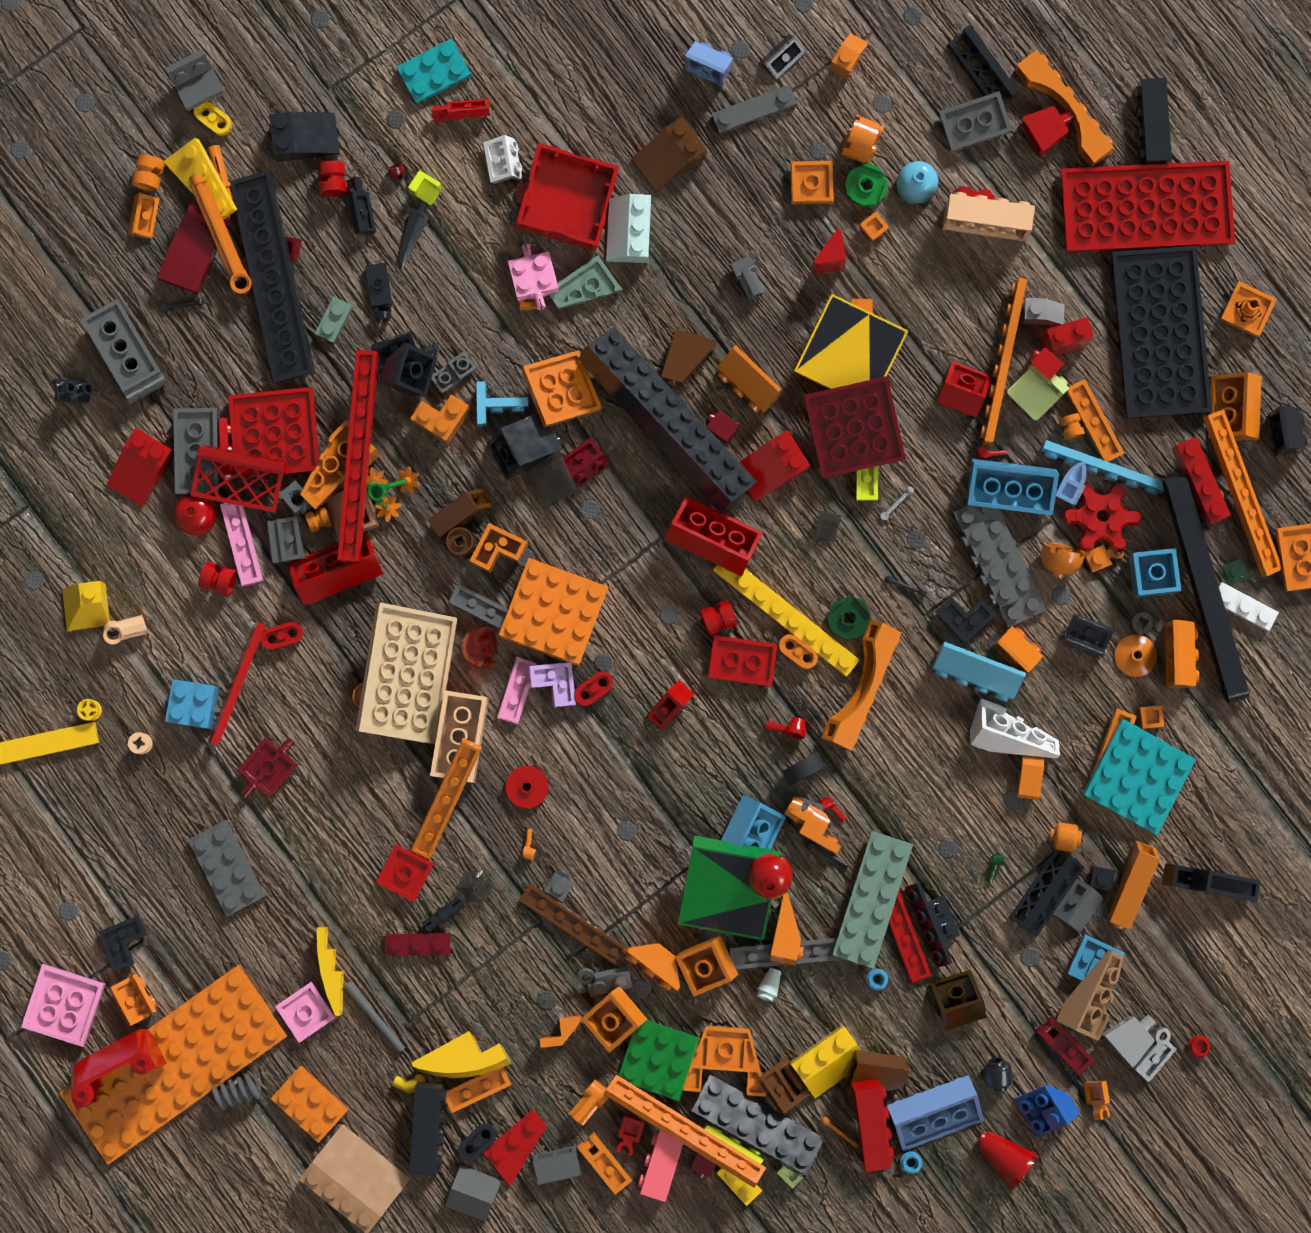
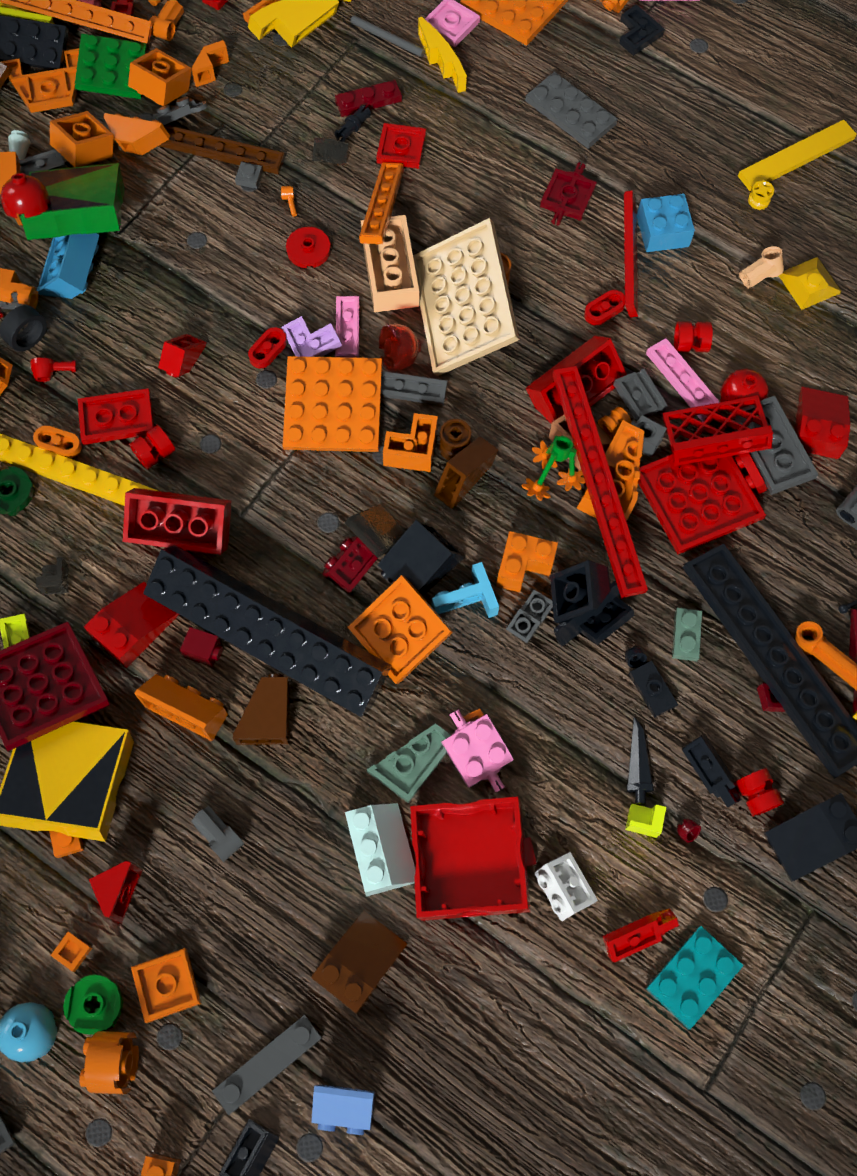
camera: 160 degrees right, 15 degrees down
(144, 744) = (699, 181): light nougat wheel -> none

